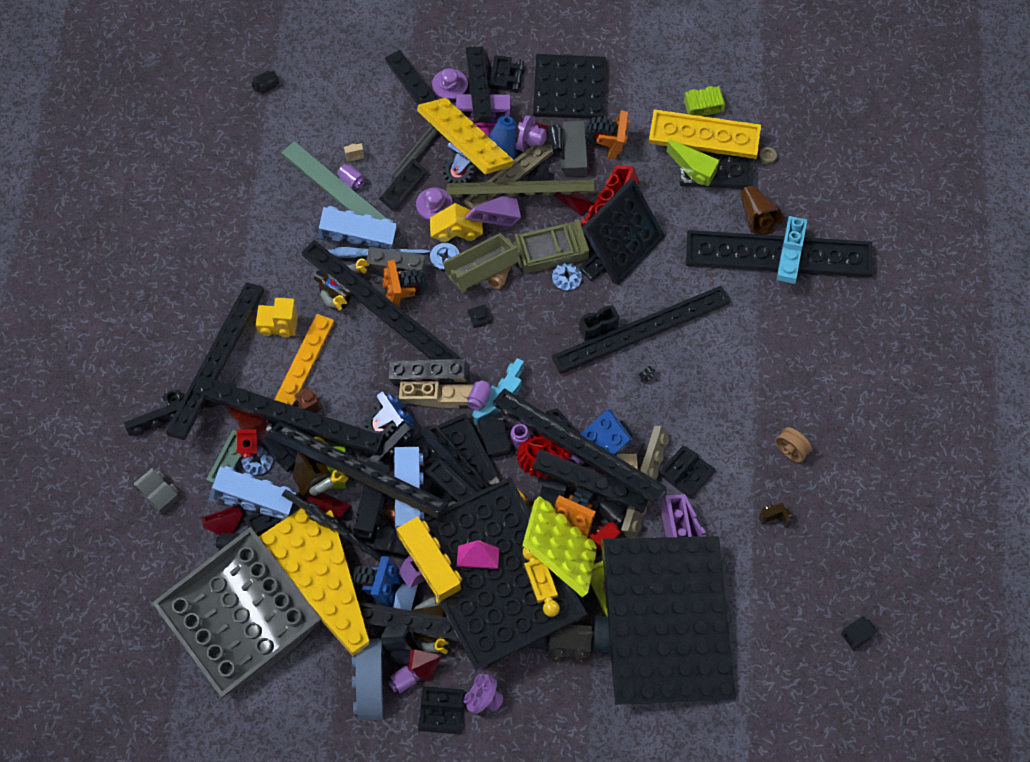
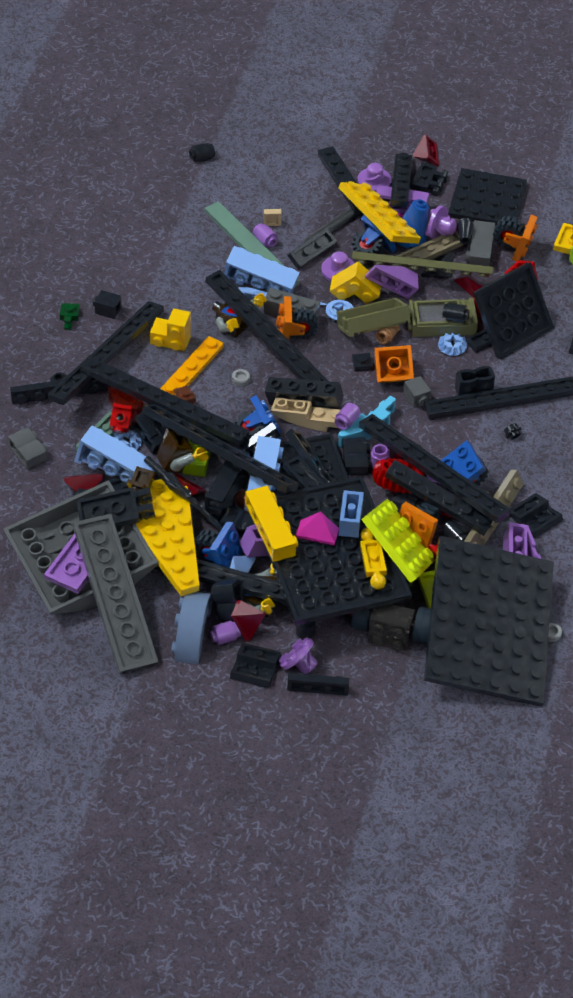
camera: 10 degrees right, 15 degrees down
(166, 311) = (69, 312): none -> dark green plate
(204, 294) = (107, 304): none -> black brick
(237, 635) = (68, 568): none -> medium lavender plate
(262, 564) = (122, 504): none -> black tile
(284, 521) = (141, 478): none -> dark brown bracket
(284, 665) = (115, 593): none -> dark grey plate
(359, 359) = (240, 377): none -> light grey tile
(497, 38) = (427, 151): none -> dark red slope
(508, 722) = (318, 684): none -> black plate
(509, 533) = (351, 514): none -> medium blue brick
(513, 318) = (393, 364): none -> orange slope
(542, 345) = (416, 391): none -> dark grey brick
(565, 244) = (455, 312): none -> black brick
(732, 610) = (555, 632): none -> light grey tile

